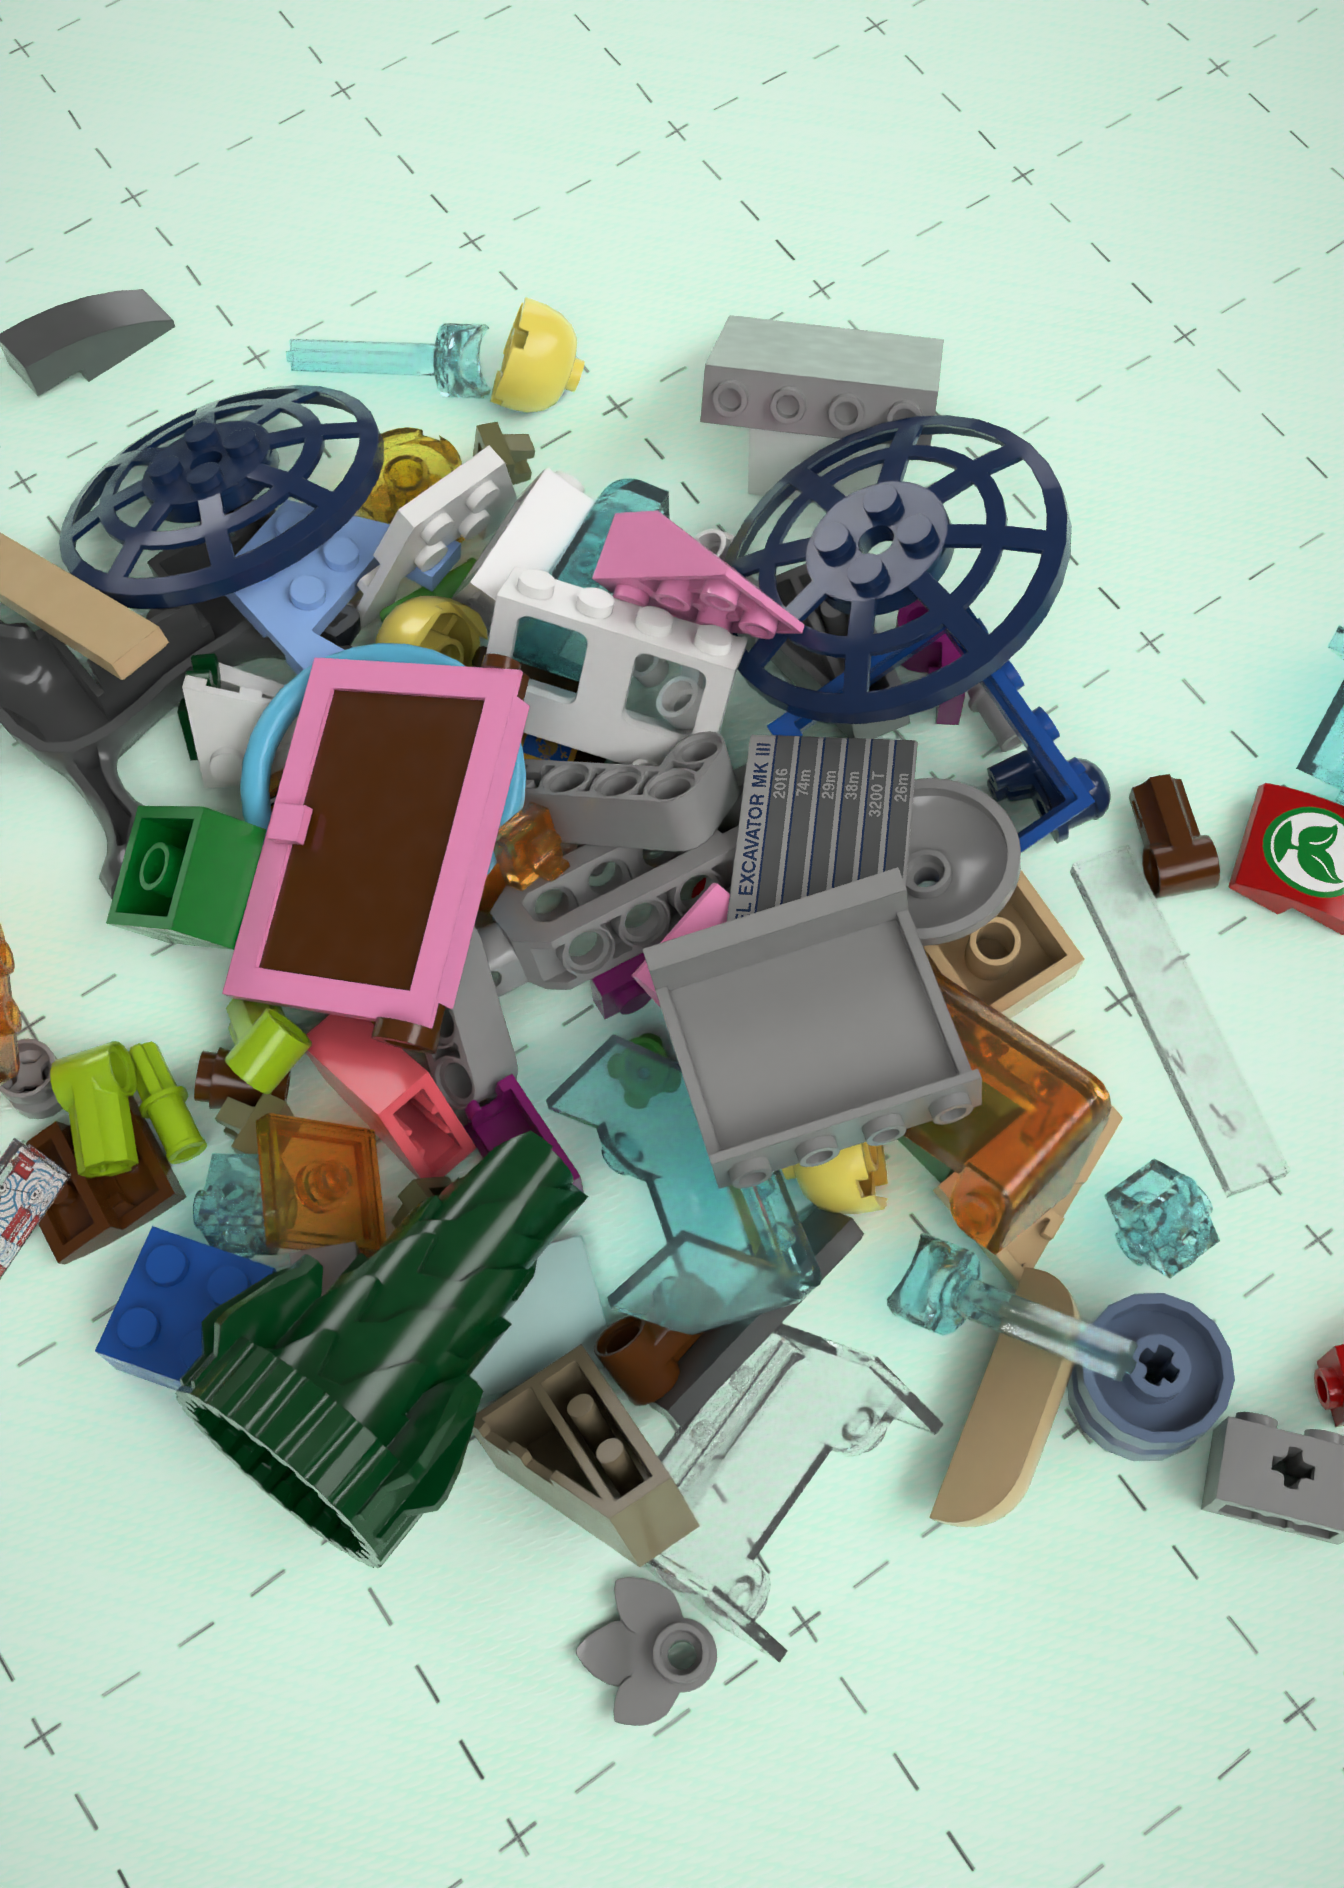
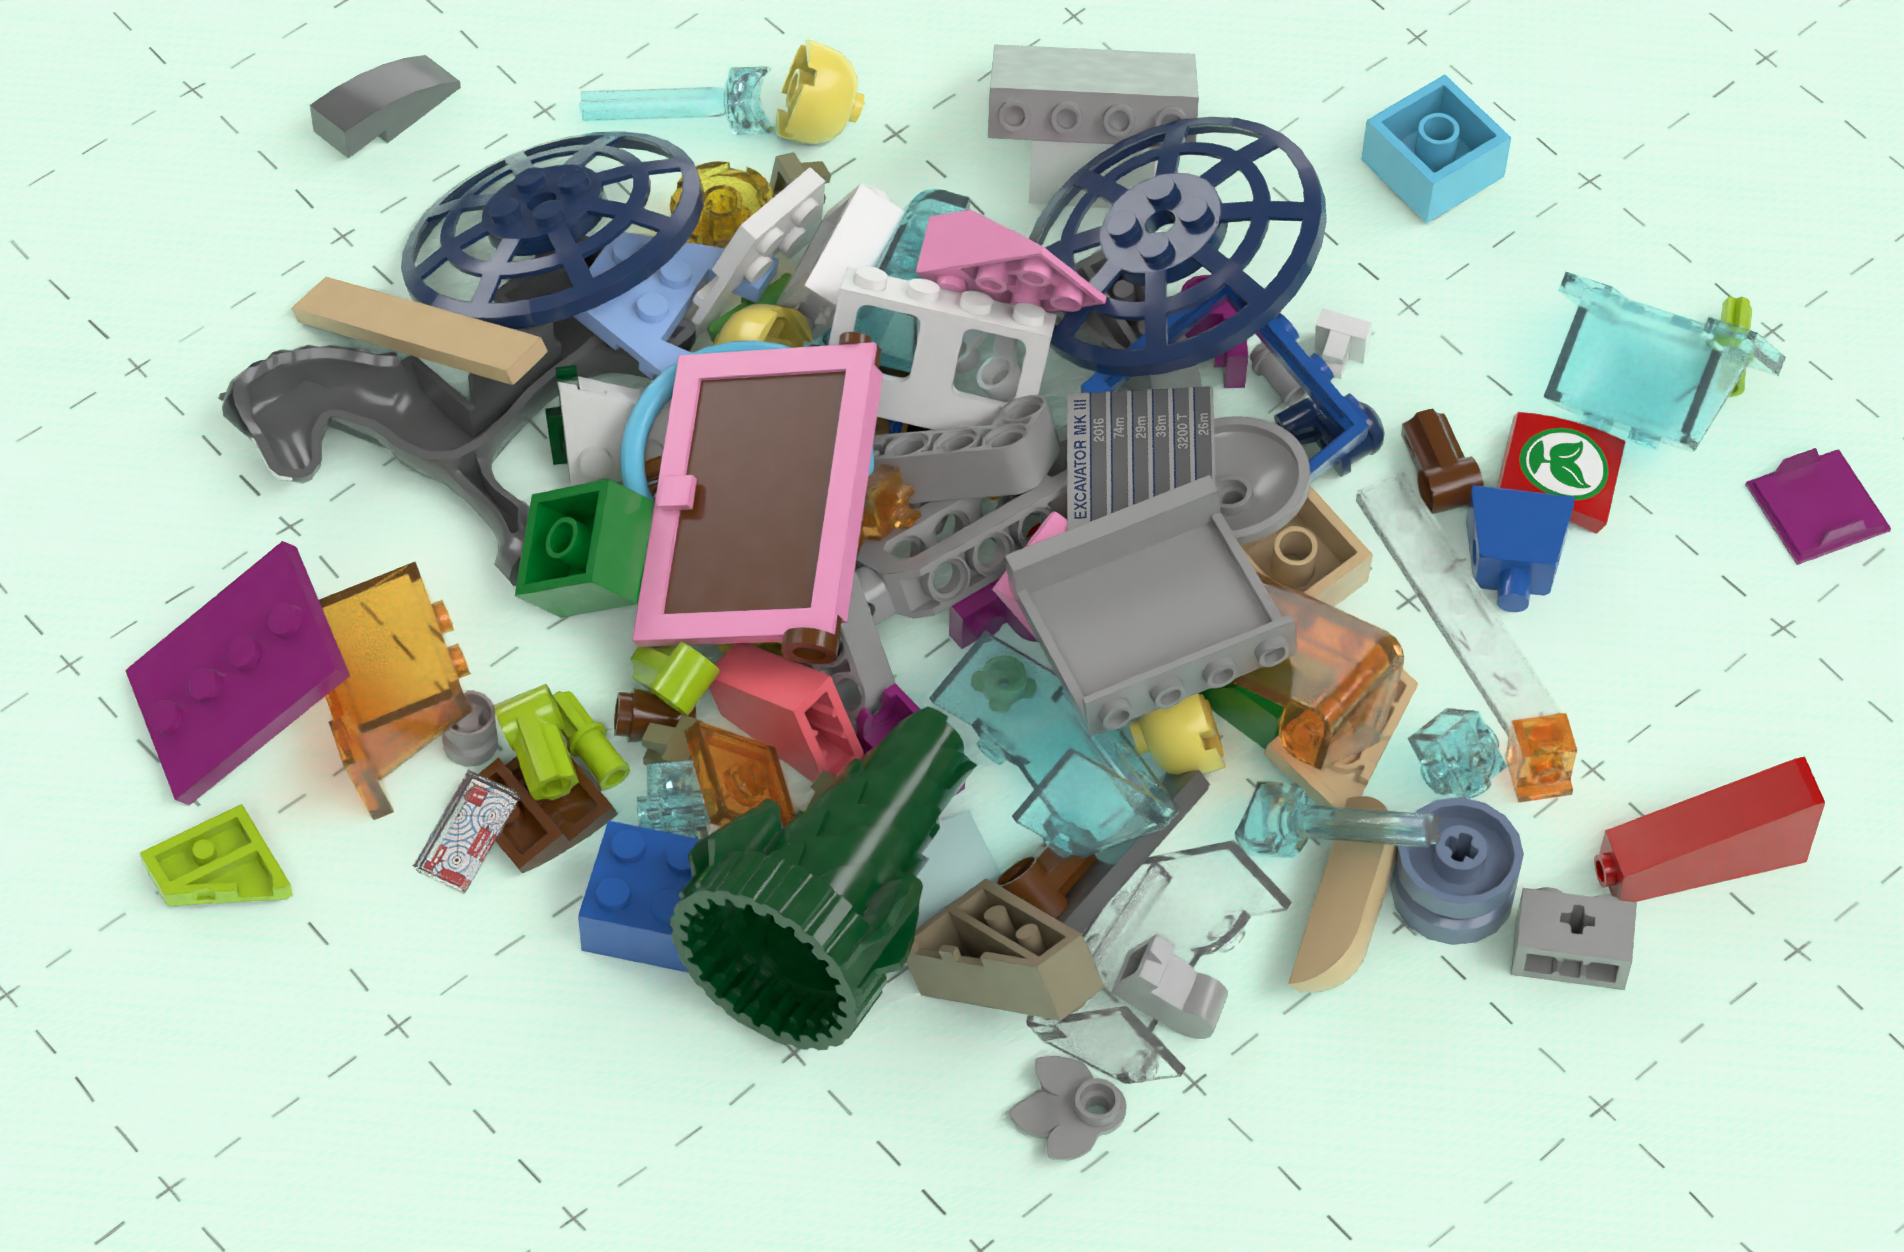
camera: 10 degrees left, 10 degrees down
(786, 1507) = (1170, 989): none -> light grey leg
(1071, 679) = (1342, 339): none -> white tile
(1197, 463) = (1435, 148): none -> medium azure brick
(1251, 945) = (1516, 542): none -> blue torso
(1261, 1229) = (1541, 757): none -> clear orange brick

